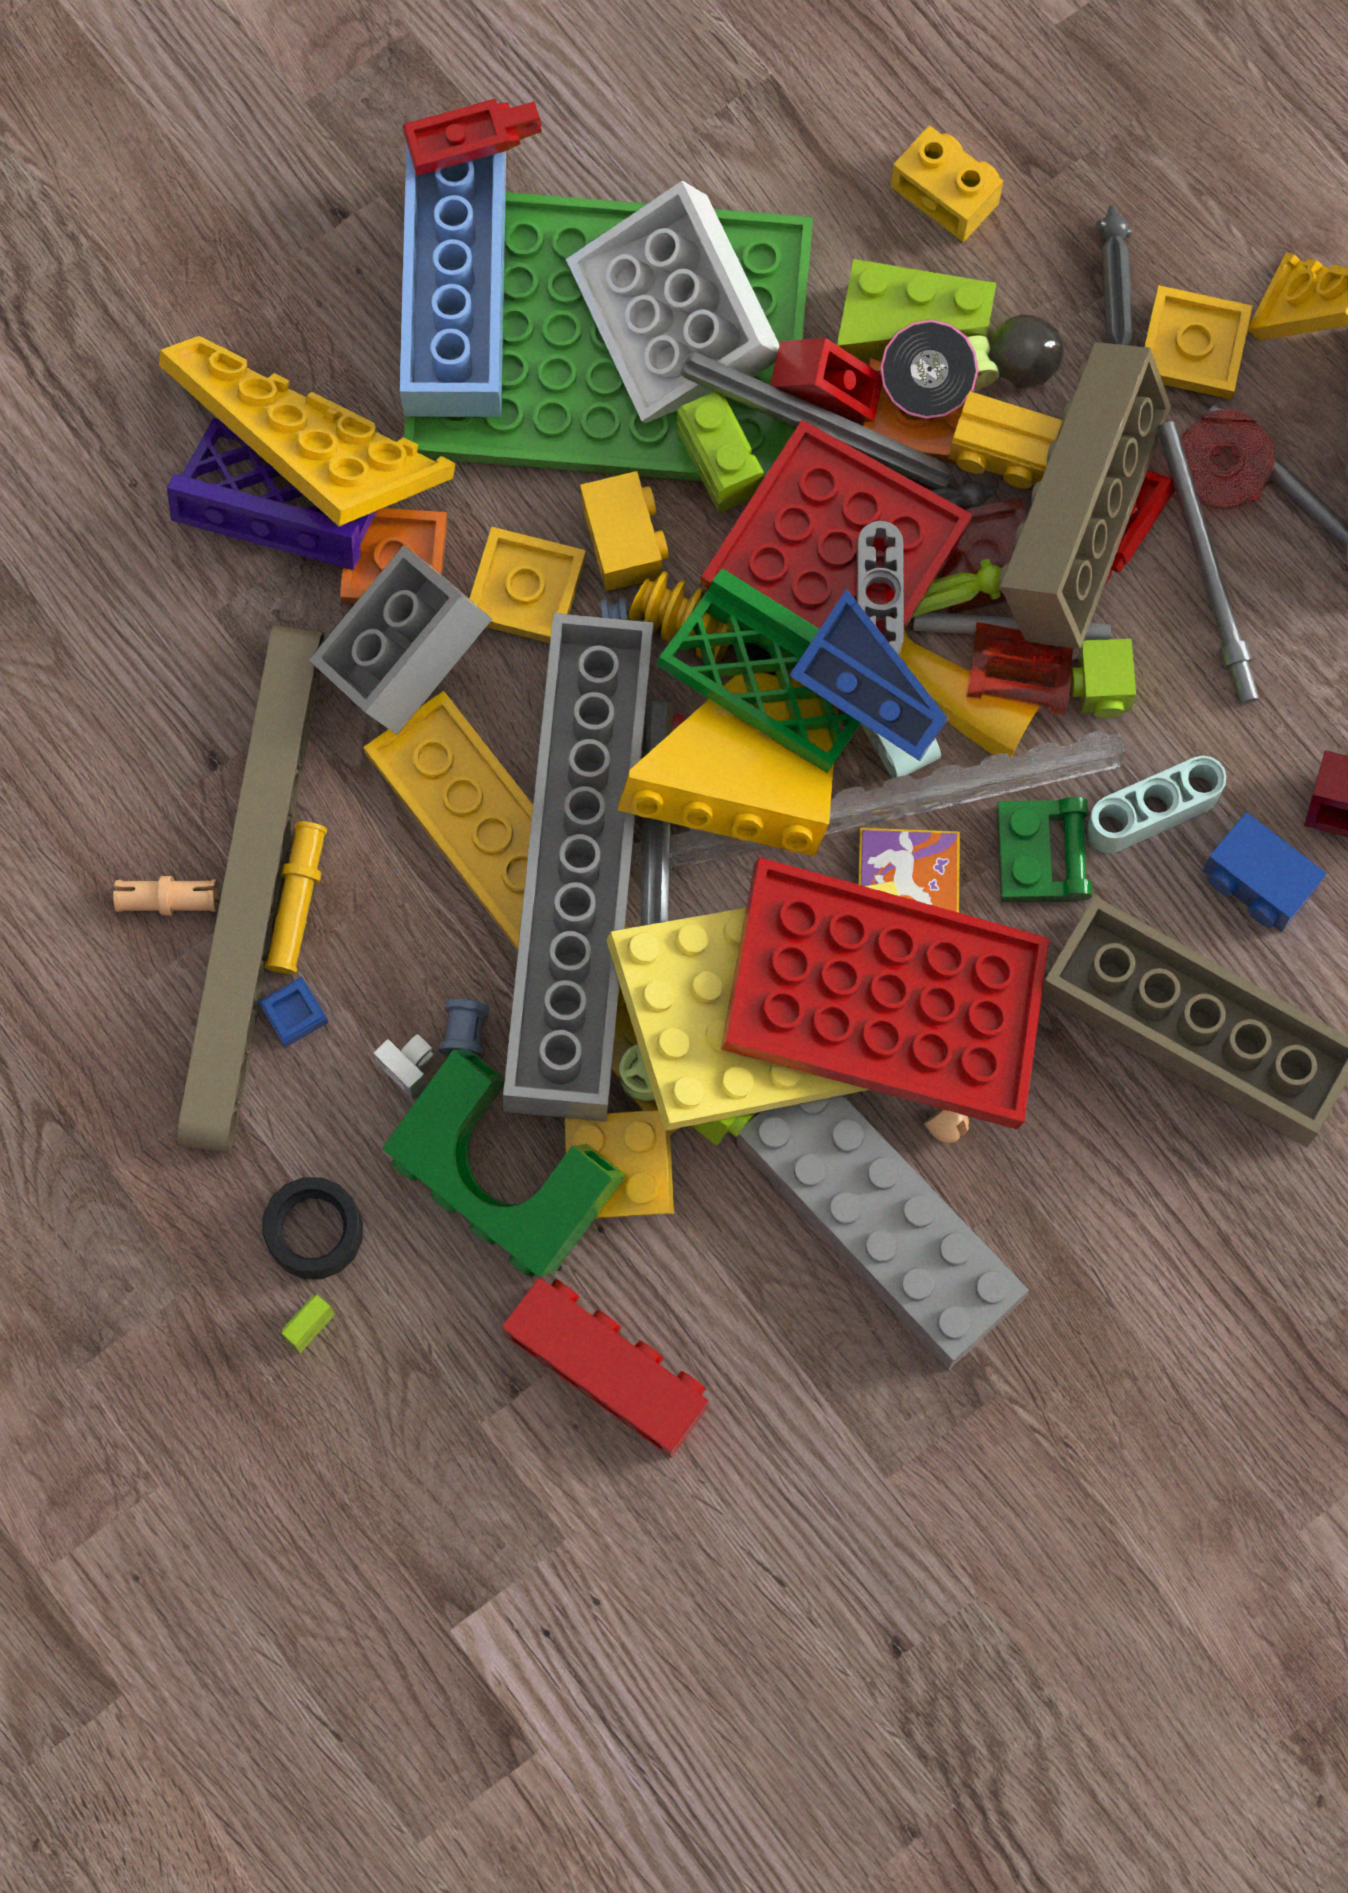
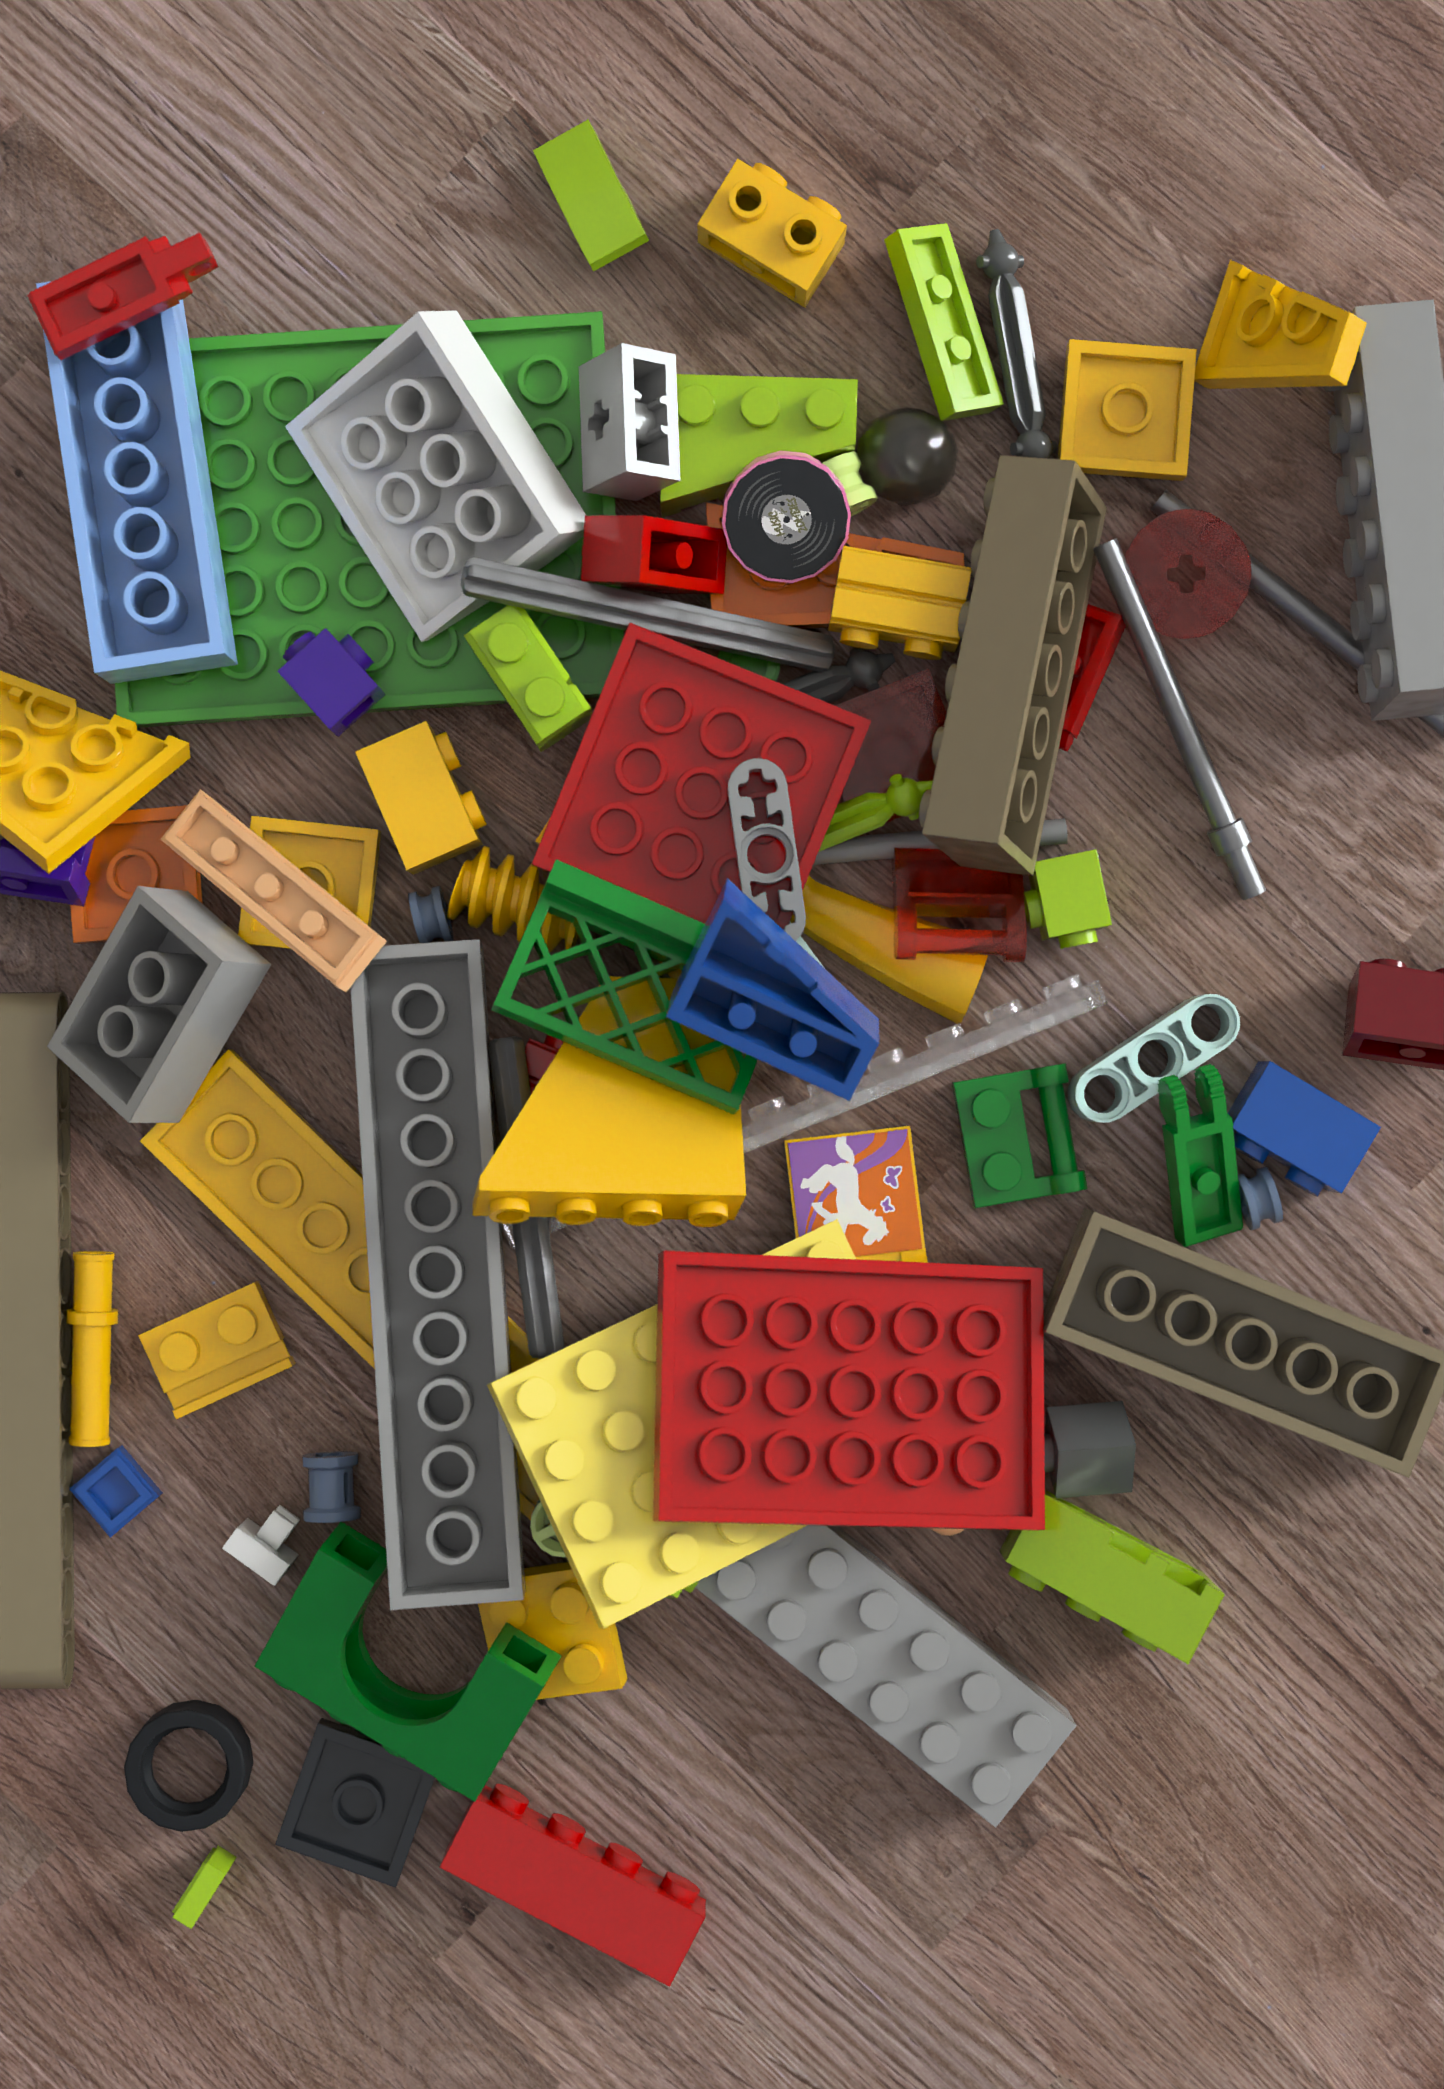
camera: 10 degrees left, 15 degrees up
(392, 917) = (217, 1349): none -> yellow plate
(442, 1278) = (355, 1804): none -> black plate
(502, 569) = (273, 891): none -> light nougat tile
(571, 433) = (331, 678): none -> dark purple brick
(817, 139) = (590, 195): none -> lime slope
(822, 285) = (629, 422): none -> light grey brick
(1066, 261) = (943, 321): none -> lime plate
(1066, 1086) = (1089, 1449): none -> dark grey brick
(1069, 1185) = (1115, 1577): none -> lime wedge
(1183, 877) = (1200, 1159): none -> green hinge
(1225, 921) = (1259, 1199): none -> sand blue bush

